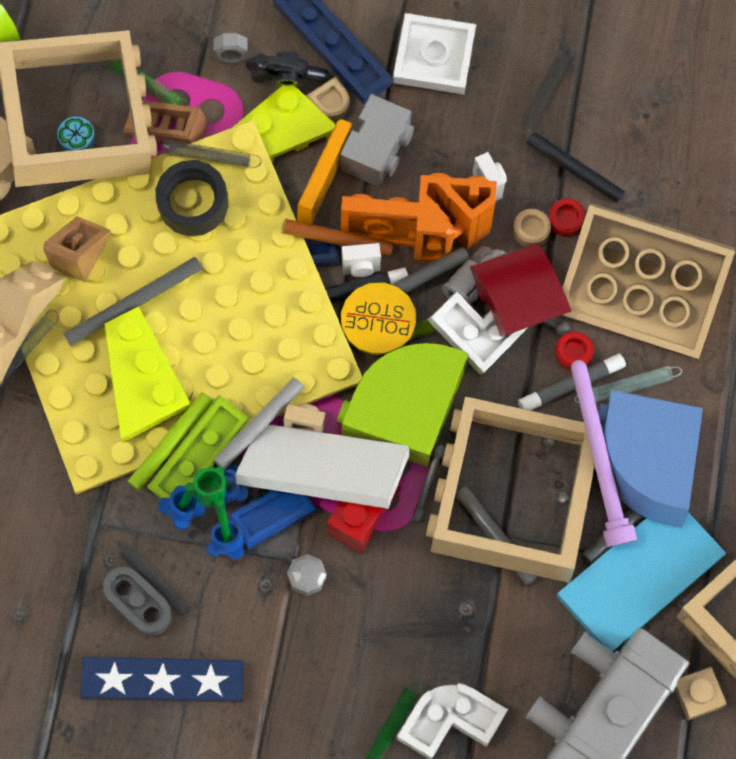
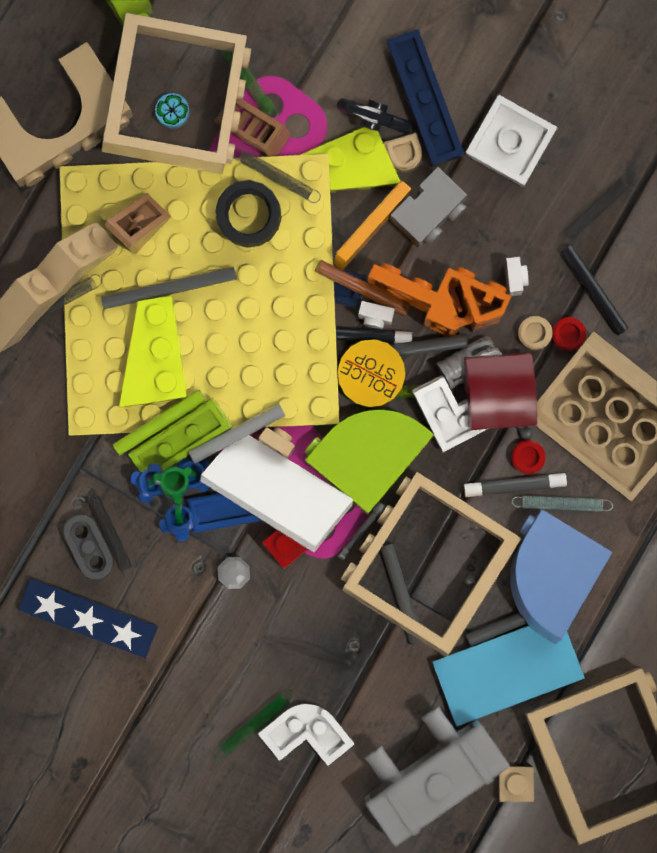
camera: 25 degrees right, 15 degrees up
(230, 48) = (333, 74): light grey tile -> none
(617, 527) = (501, 629): lavender piece -> none

